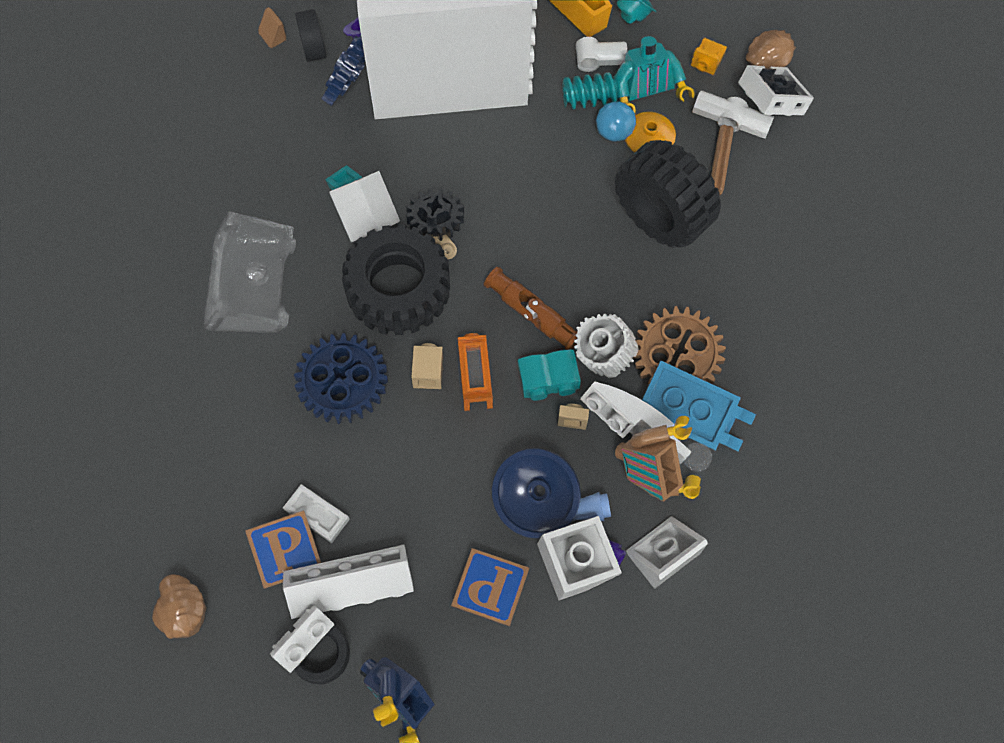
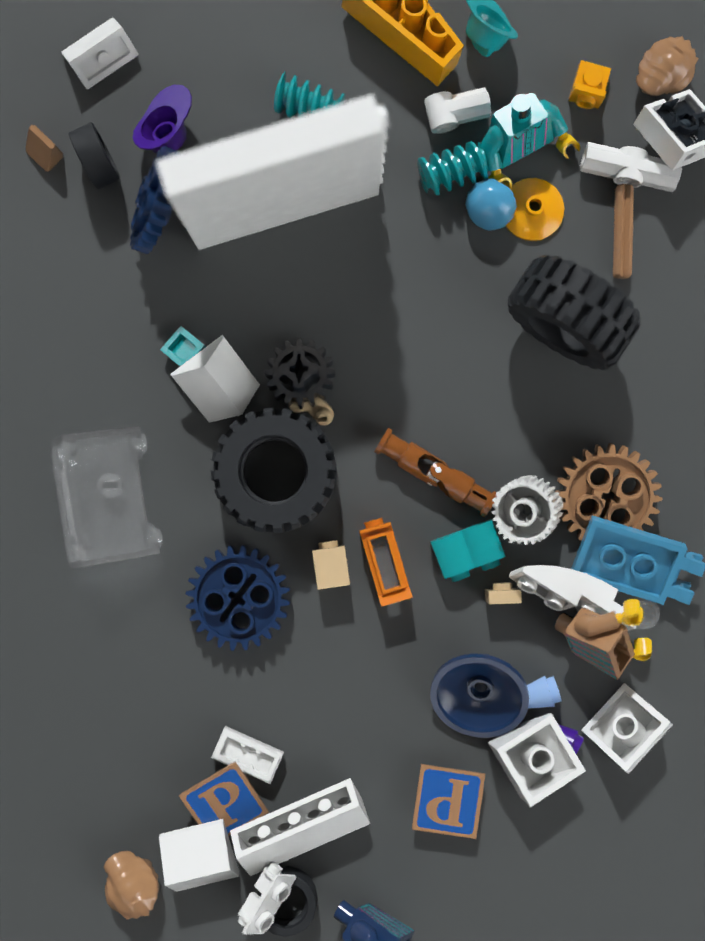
camera: 10 degrees left, 20 degrees up
(247, 595) = (197, 856): none -> white slope

